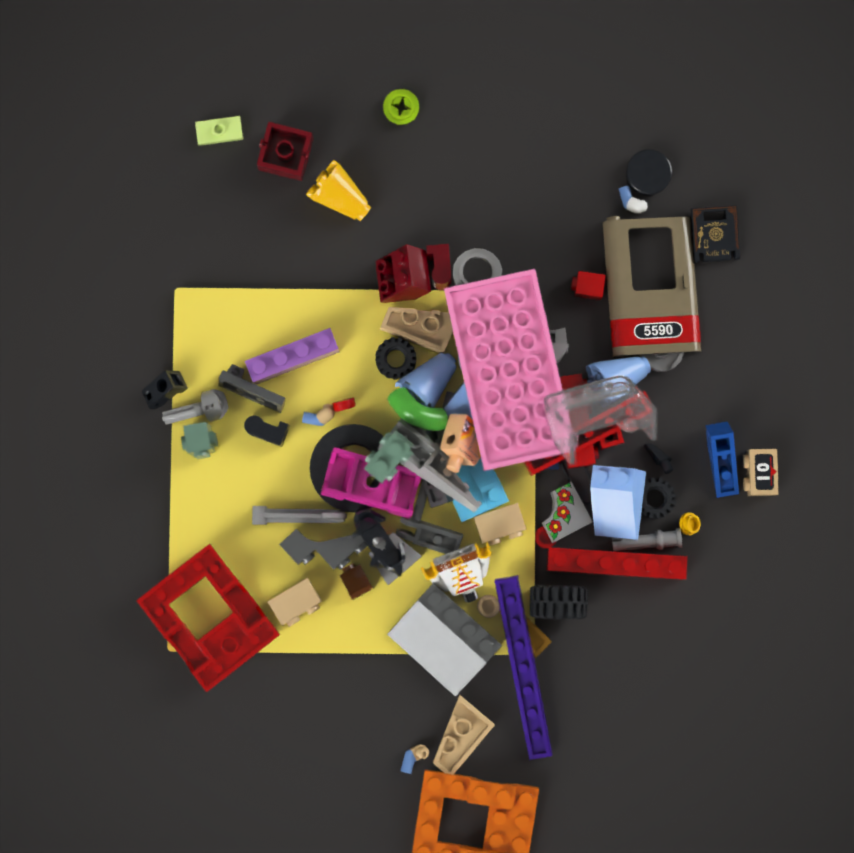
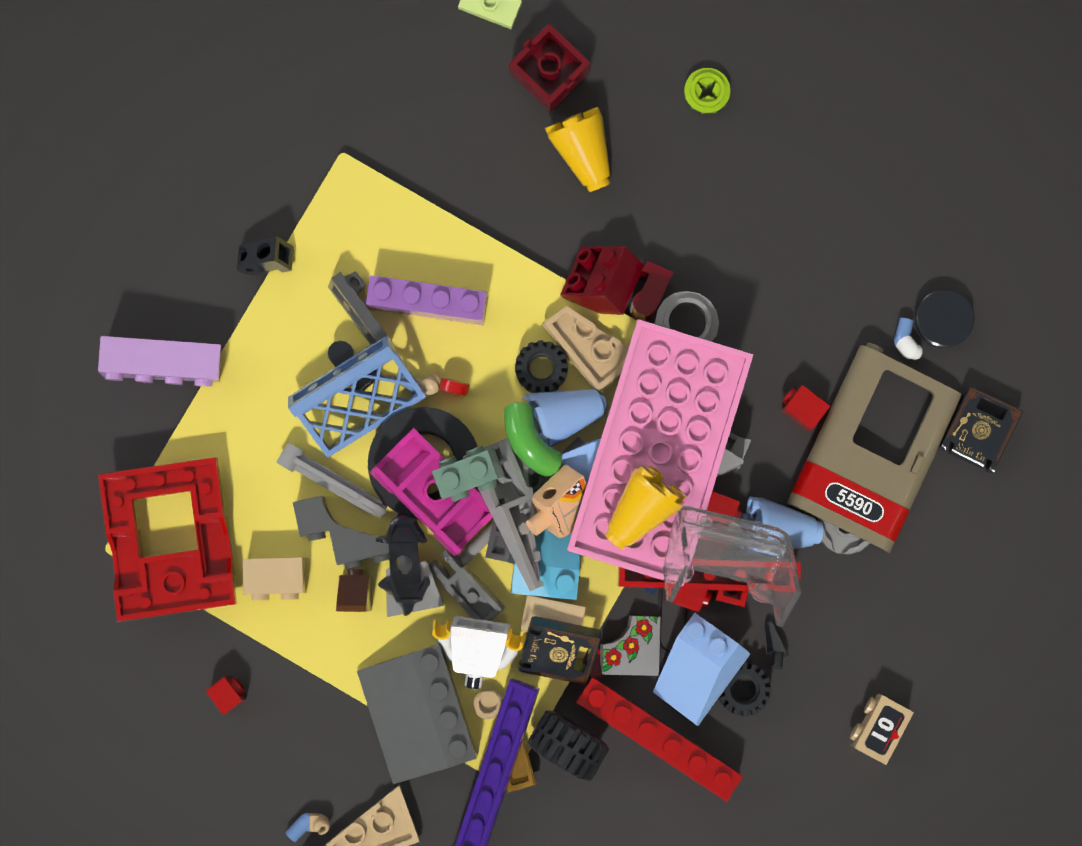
camera: 30 degrees right, 0 degrees up
(133, 499) = (159, 360): none -> lavender wedge
(199, 440) = (269, 335): sand green brick -> none
(212, 404) = (300, 303): light grey piece -> none
(264, 444) = (348, 374): none -> medium blue fence
(308, 700) = (227, 694): none -> red plate
(513, 542) = (553, 647): none -> black container
(519, 411) = (643, 506): none -> yellow cone
(658, 540) = (721, 738): light grey pin -> none
(689, 523) = (766, 740): yellow plate -> none
(722, 458) = (845, 687): blue slope -> none

